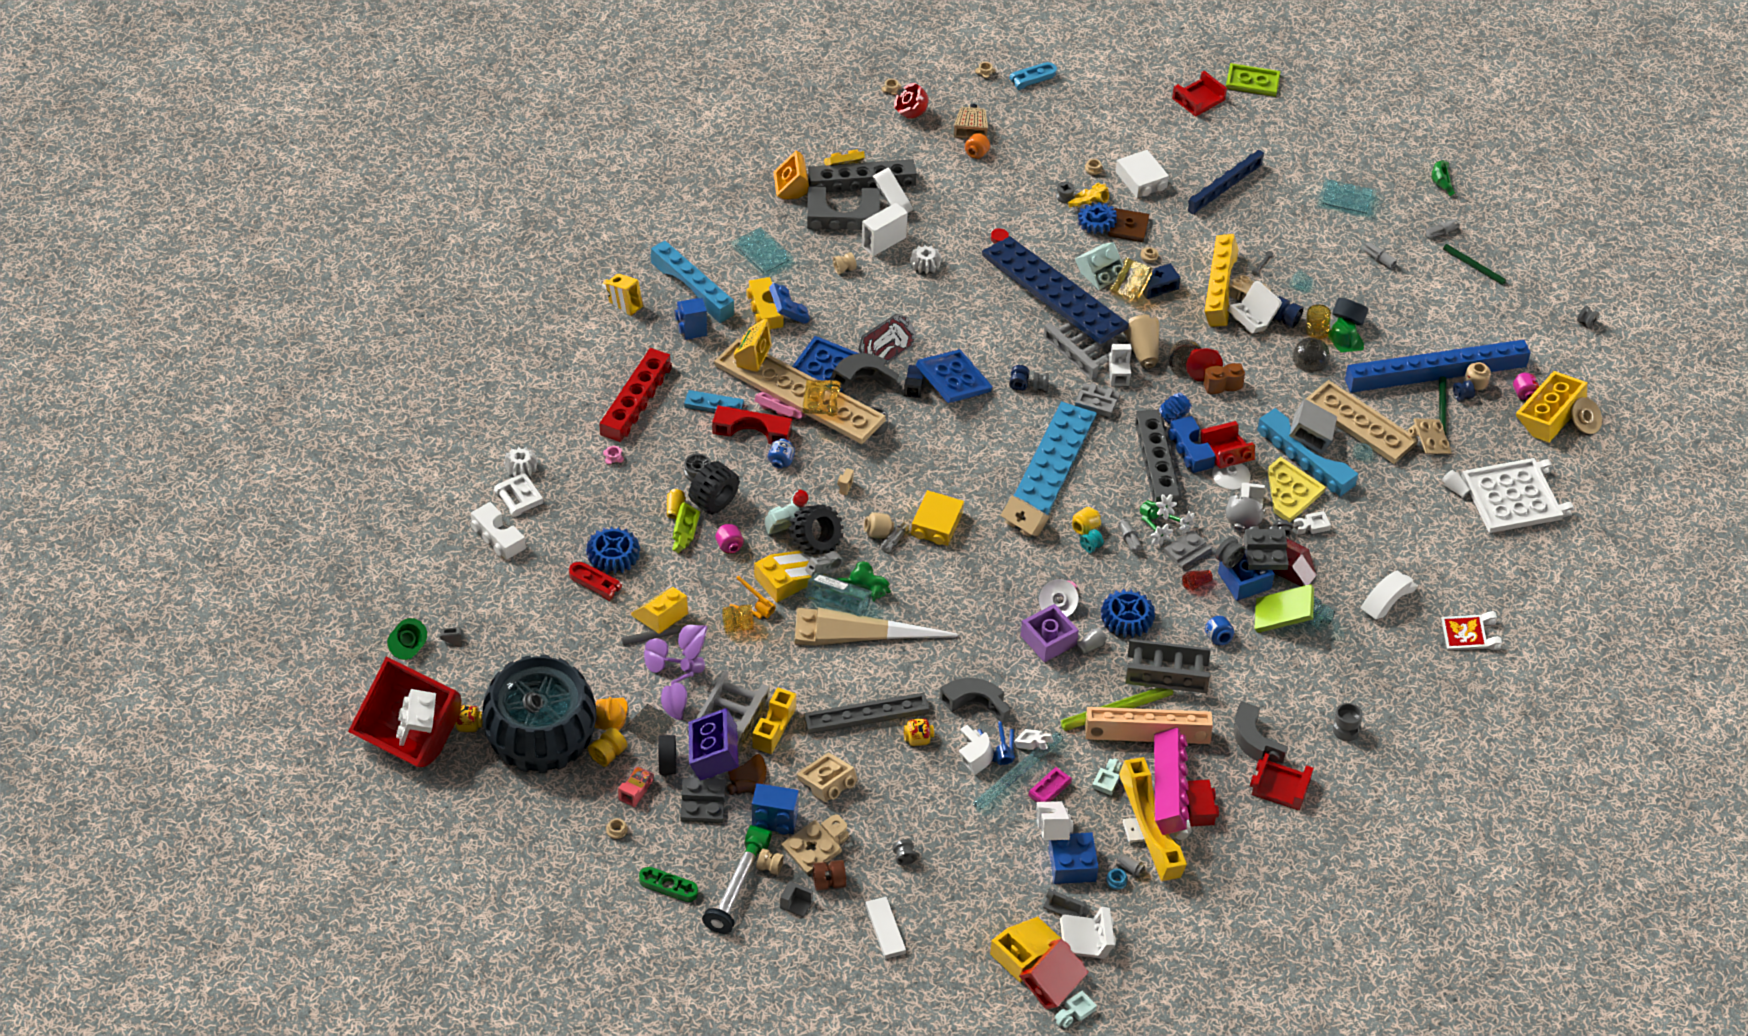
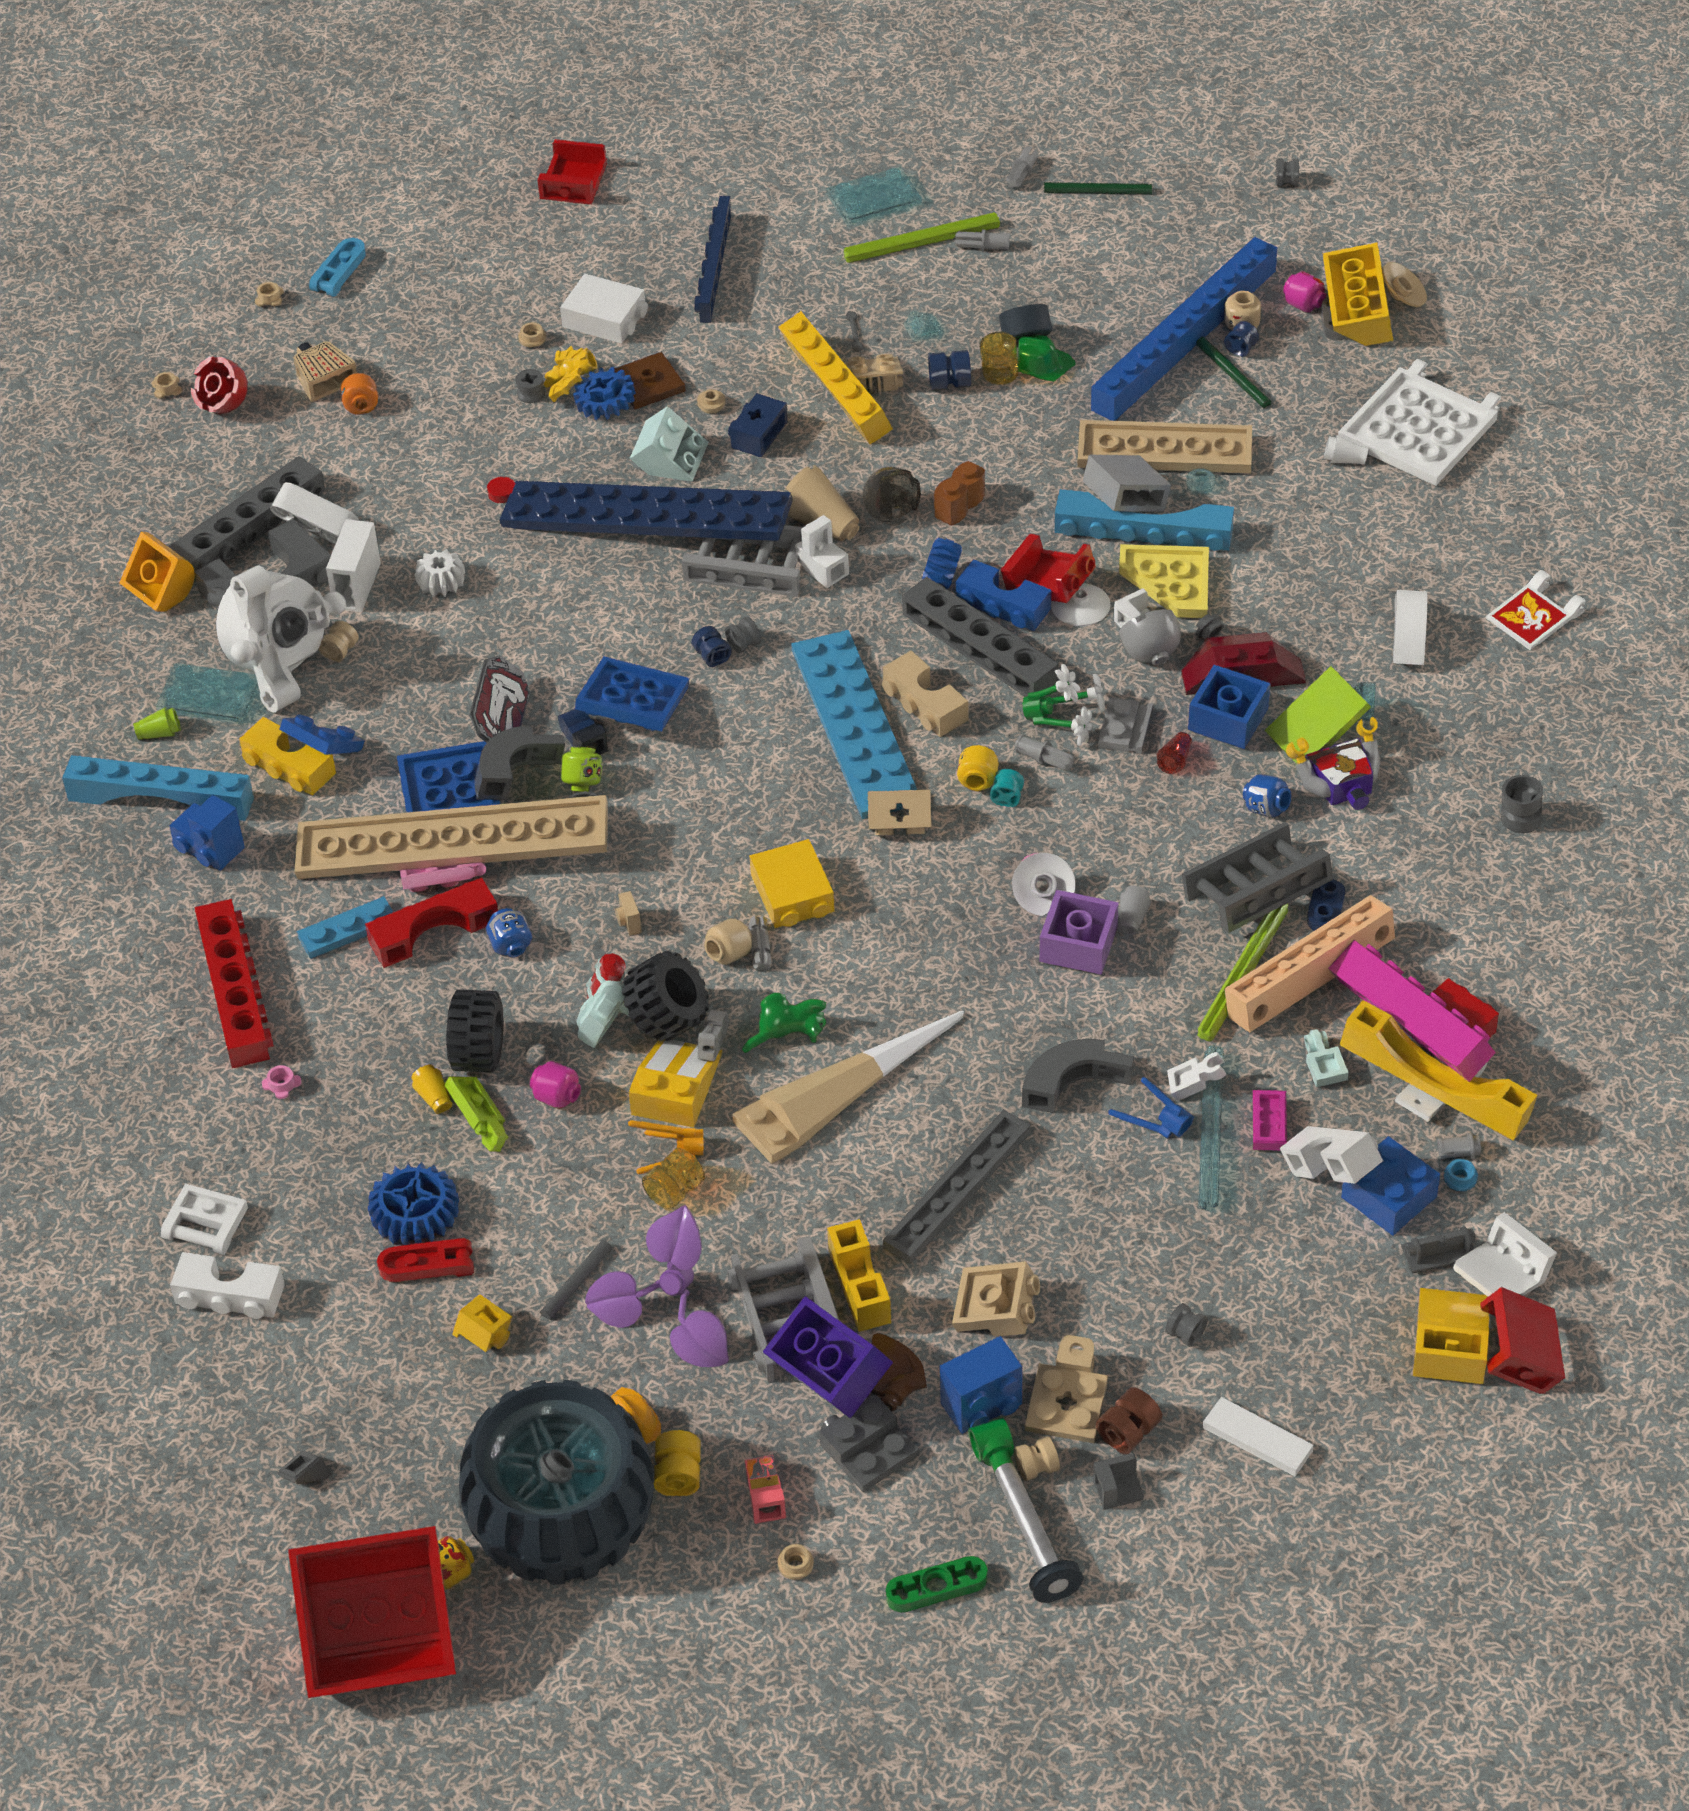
camera: 35 degrees left, 0 degrees up
(407, 638) = (255, 1514): green piece -> none
(416, 713) = (398, 1601): white bracket -> none
(520, 462) = (163, 1173): white gear -> none
(588, 625) = (483, 1324): none -> yellow brick
(624, 293) = (79, 859): yellow torso -> none
(650, 724) = (694, 1396): clear smoke piece -> none
(662, 610) = (560, 1235): yellow slope -> none
(667, 754) = (770, 1416): black tyre -> none
(695, 461) = (424, 1021): dark grey wheel -> none
(723, 251) = (159, 724): none -> lime cone
(754, 347) = (340, 816): yellow slope -> none
(810, 235) = (271, 627): none -> white piece
(815, 394) = (492, 830): clear yellow plate -> none
(838, 594) = (771, 1060): clear light blue brick -> none
(853, 156) = (199, 513): yellow plate -> none
(893, 397) = (581, 768): none -> lime head
(918, 732) = (1045, 1164): yellow head -> none
(978, 752) = (1145, 1135): white brick -> none
(1078, 1006) = (1583, 1361): light aqua plate -> none
(1097, 399) = (833, 613): light grey plate -> none
(1099, 480) = (937, 709): none -> tan arch
(1128, 617) = (1121, 846): blue gear -> none
(1136, 281) = (737, 440): clear yellow plate -> none
(1194, 702) = (1325, 903): none -> dark blue plate
(1201, 360) = (919, 488): red dish -> none
(1230, 552) = (1204, 688): dark grey wheel -> none
(1251, 740) = (1434, 899): dark grey arch -> none
(1253, 79) = (617, 120): lime tile -> none
(1256, 308) = (914, 384): white bracket -> none
(1266, 548) = (1234, 658): dark grey plate -> none
(1271, 643) = (1342, 770): none -> torso
(1280, 783) = (1523, 927): red panel -> none
(1311, 355) = (1028, 404): clear smoke cylinder -> none
(1314, 522) = (1237, 597): white plate -> none
(1348, 234) = (920, 237): none -> lime axle
(1431, 435) = (1259, 405): tan hinge -> none
(1441, 176) = (960, 110): green piece -> none

